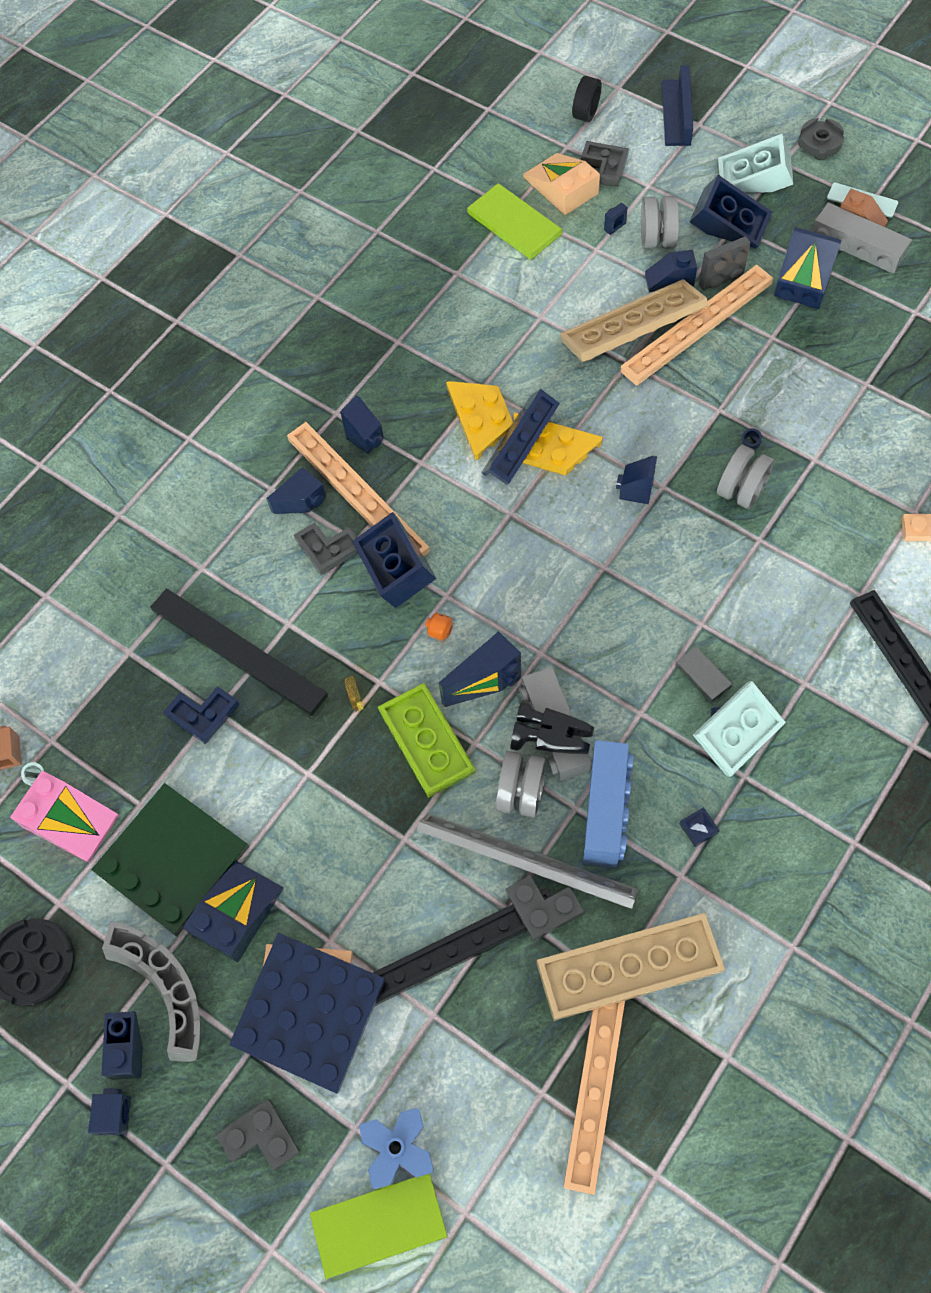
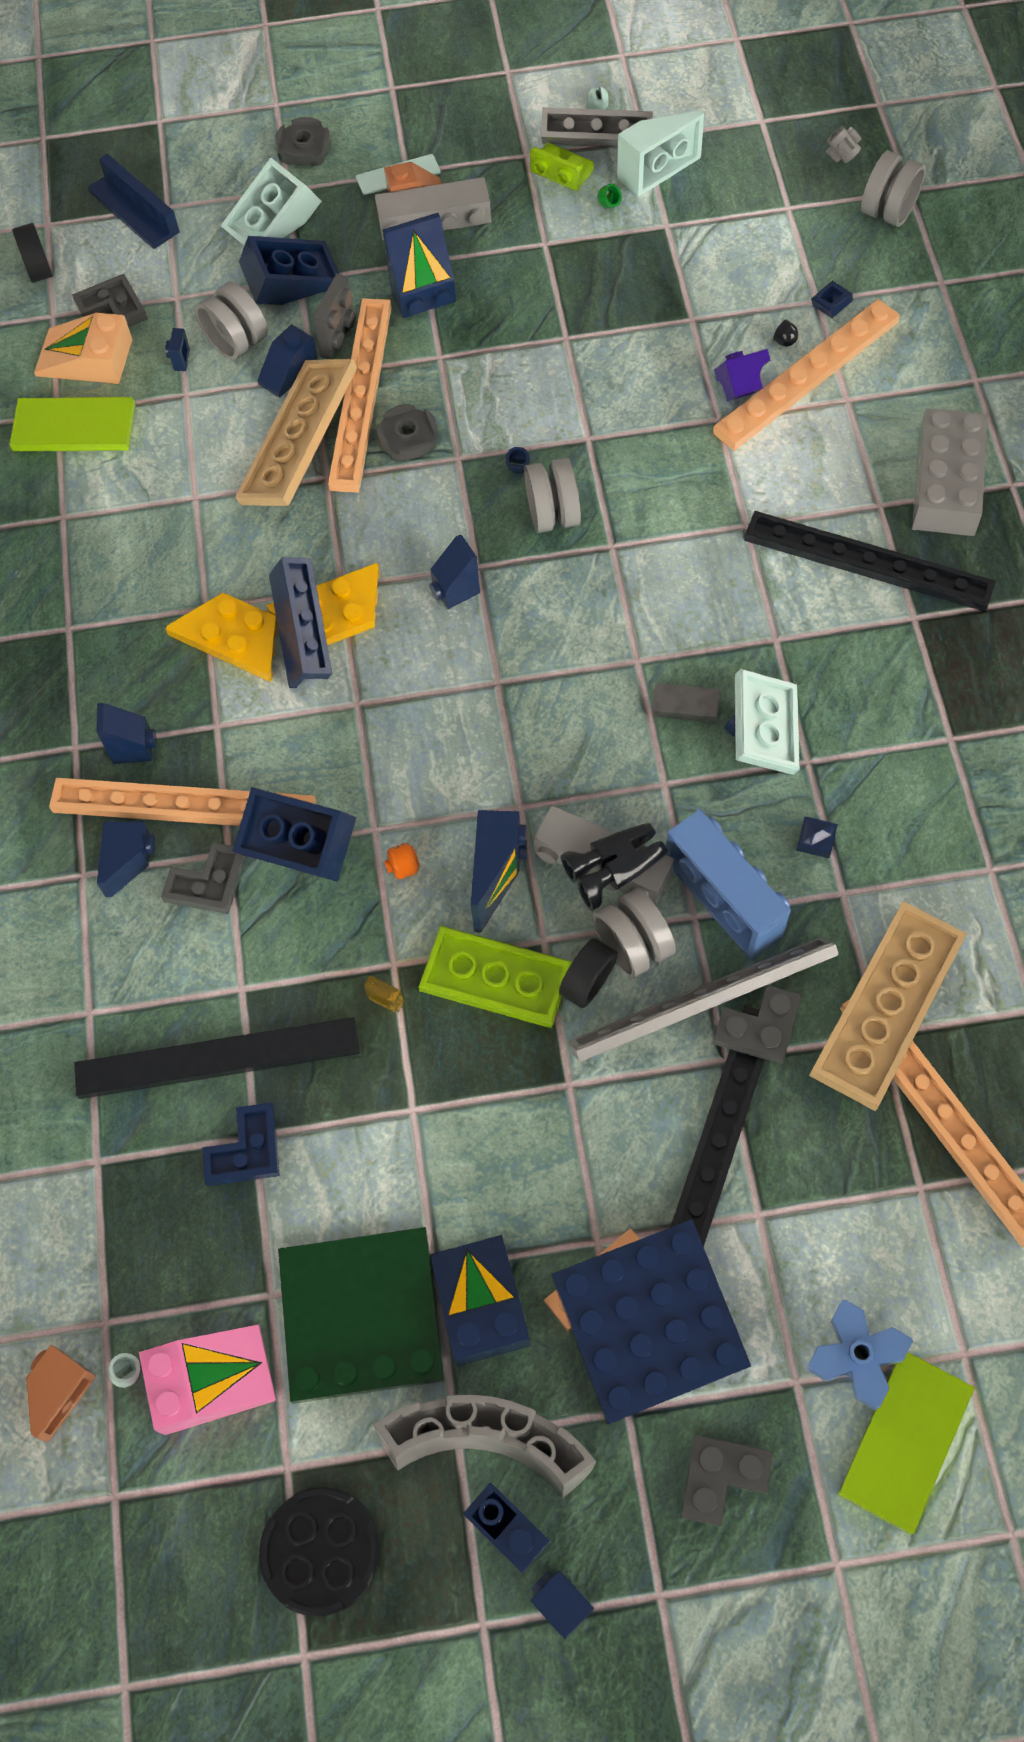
camera: 45 degrees left, 0 degrees up
(472, 783) = (588, 972): none -> black tyre
(699, 381) = (412, 445): none -> dark grey plate

